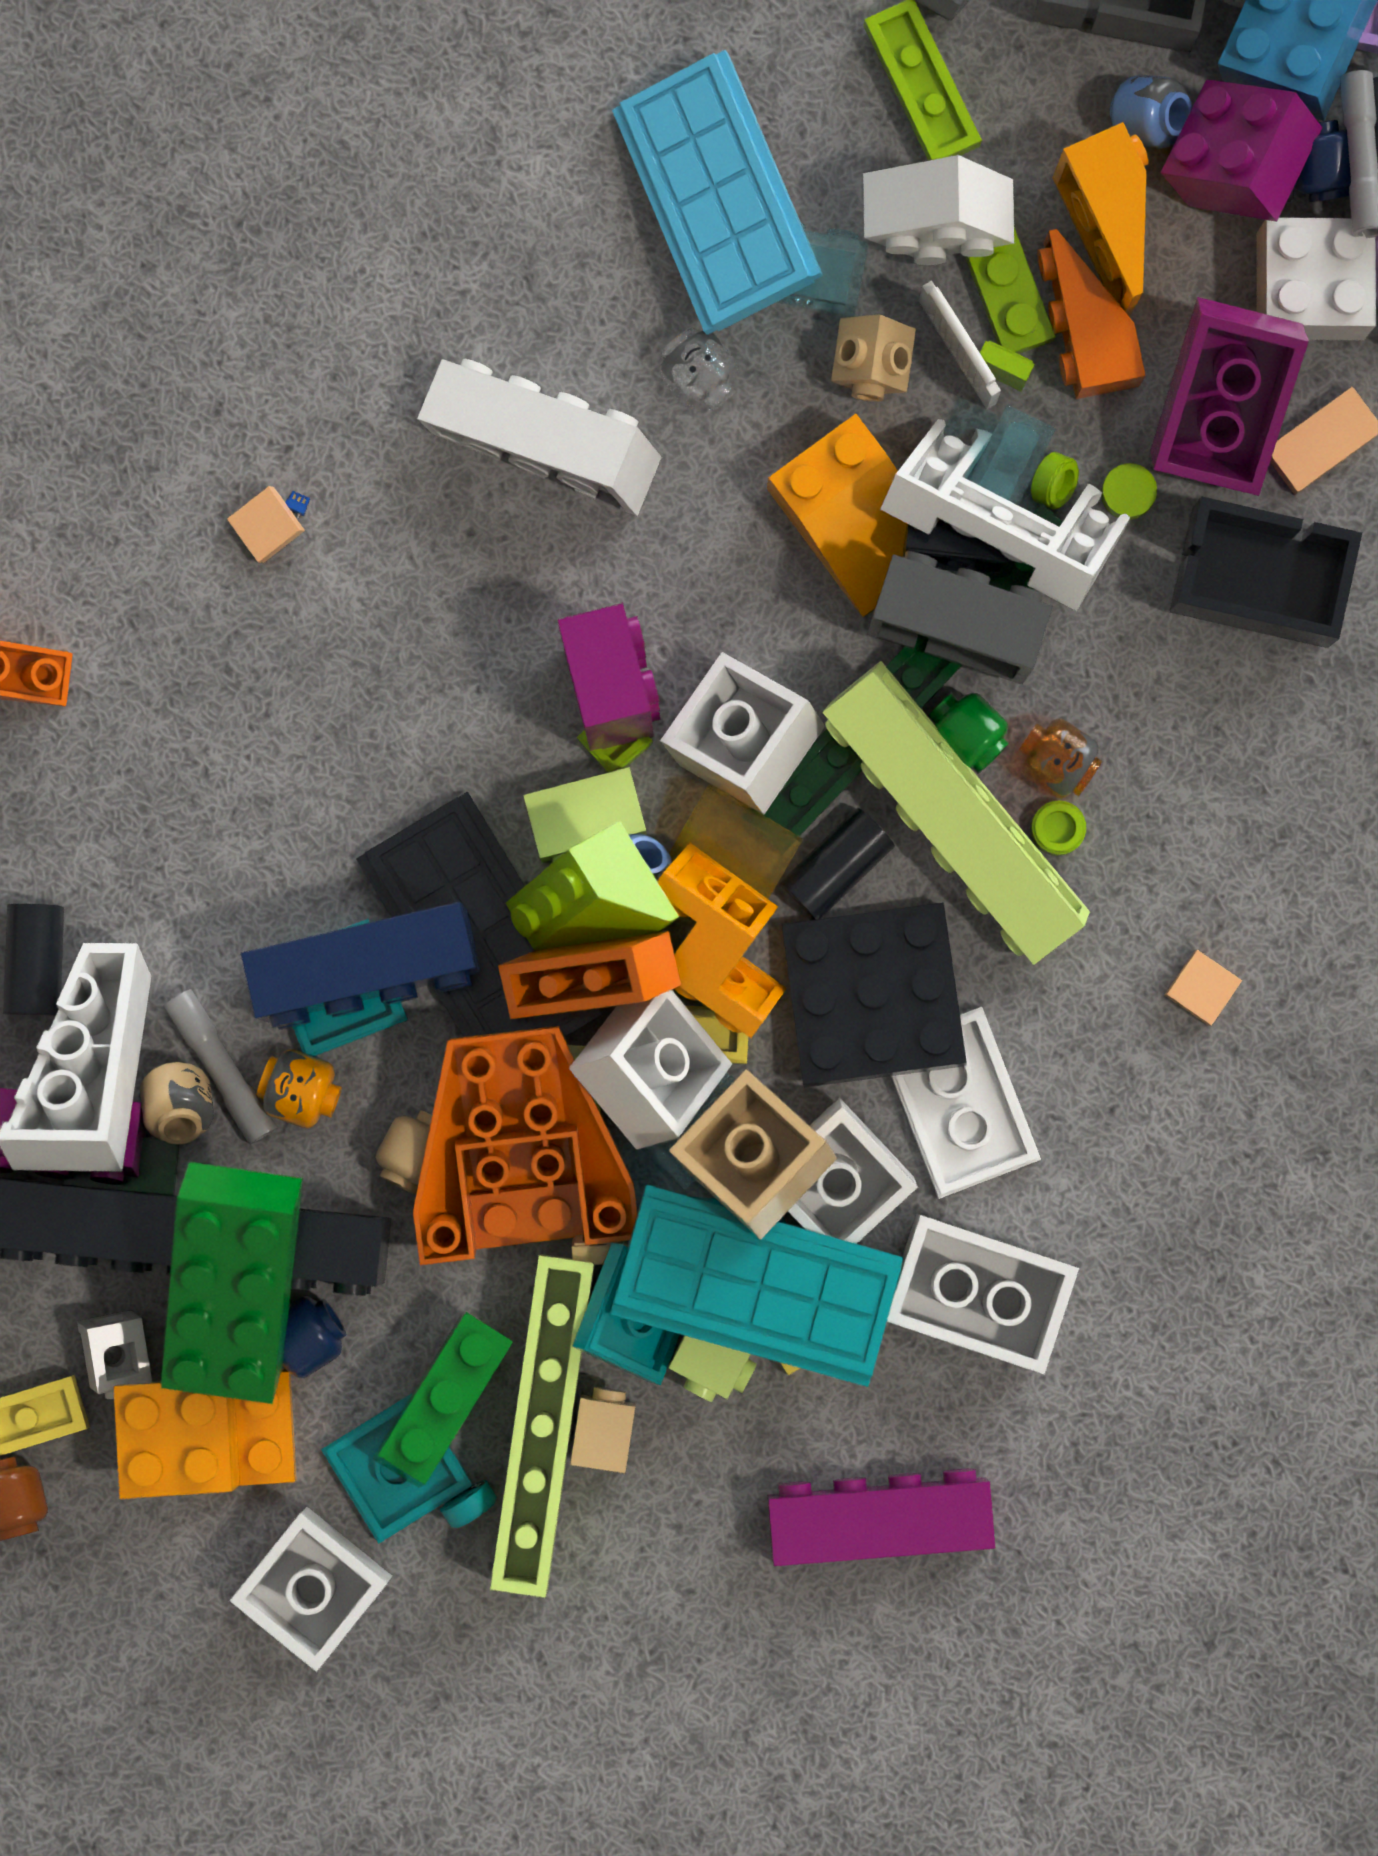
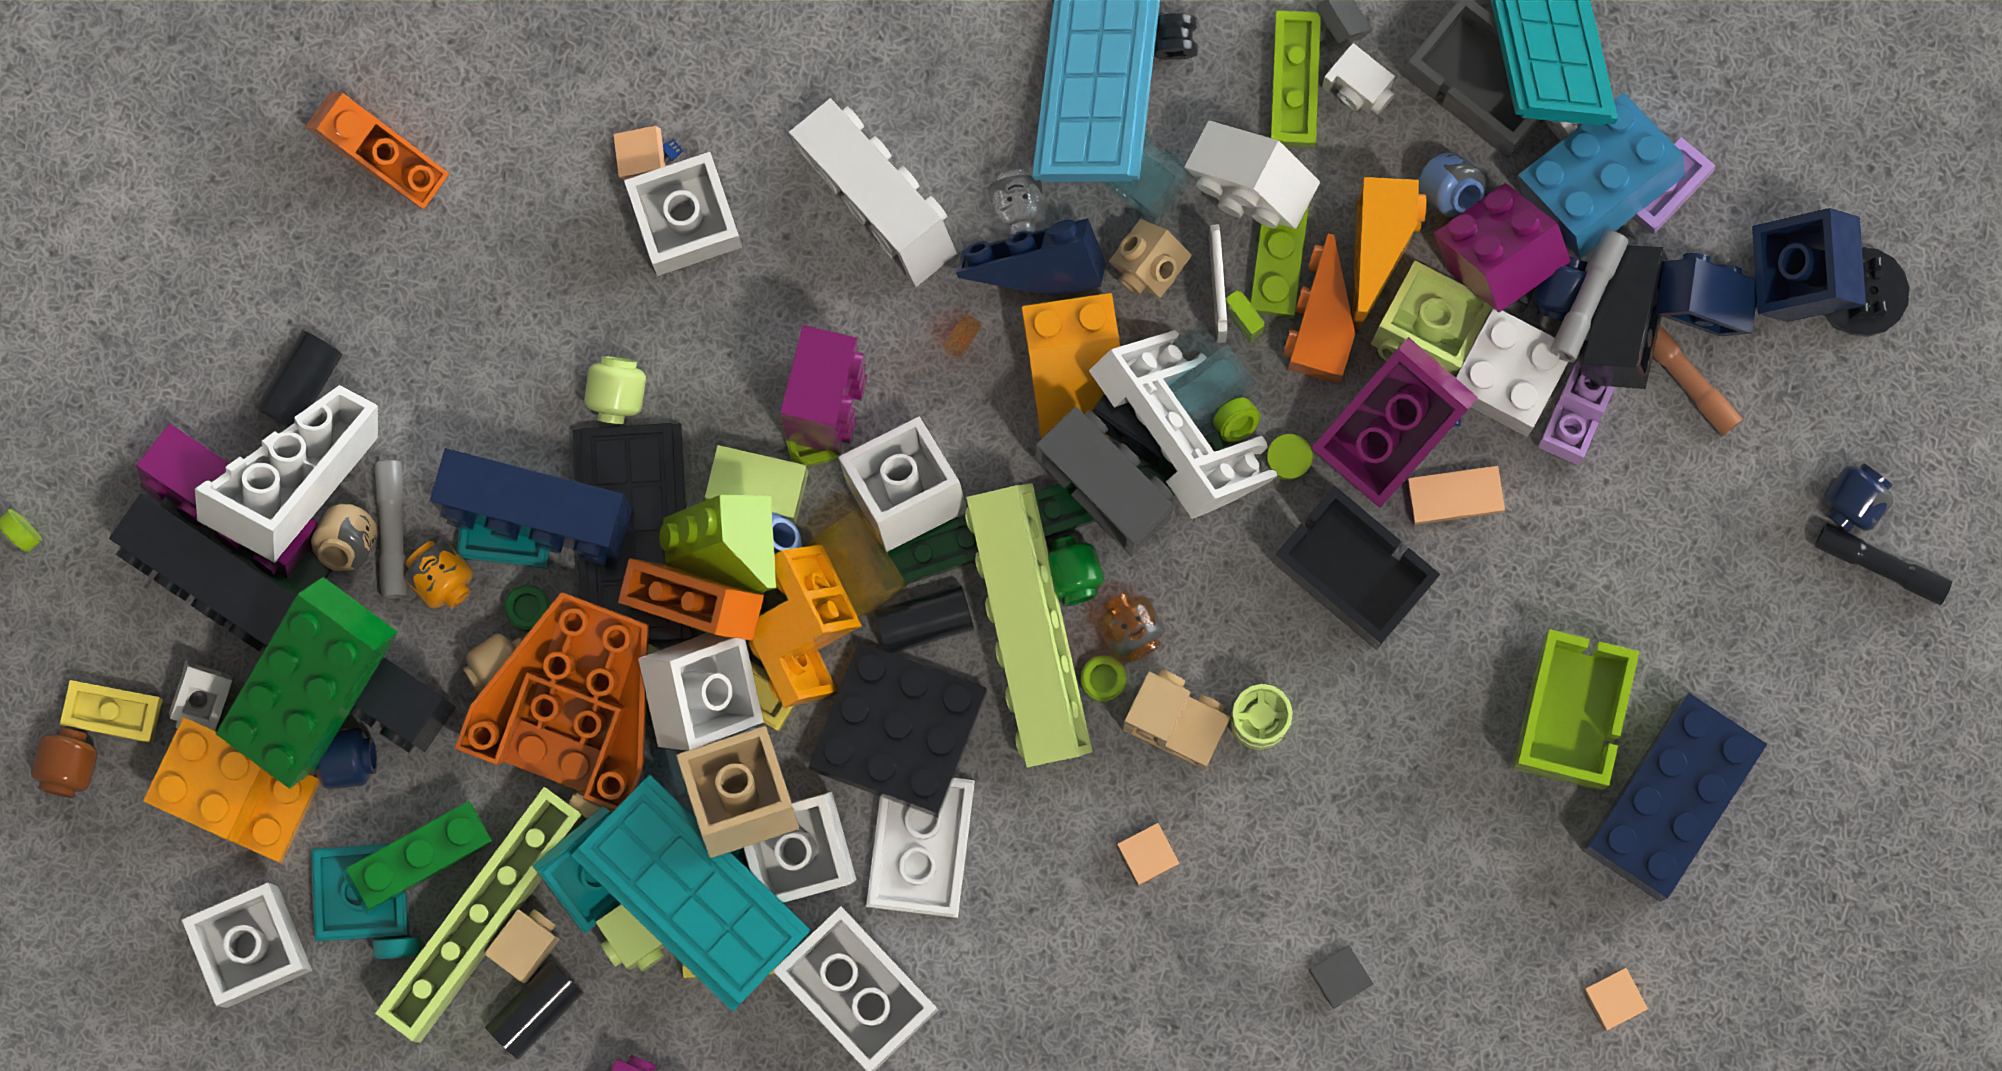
camera: 35 degrees right, 5 degrees down
(351, 565) = (683, 213): none -> white brick
(378, 792) = (614, 389): none -> yellowish green head
(410, 1073) = (526, 606): none -> green tile
(648, 1492) = (534, 1010): none -> black brick
(717, 543) = (959, 342): none -> clear orange tile
(761, 418) = (1043, 261): none -> dark blue slope
(773, 102) = (1175, 36): none -> black wheel
(994, 49) = (1360, 81): none -> white brick
(1161, 831) = (1174, 721): none -> tan brick
(1205, 258) = (1436, 315): none -> yellowish green plate
(1248, 782) = (1261, 716): none -> yellowish green wheel

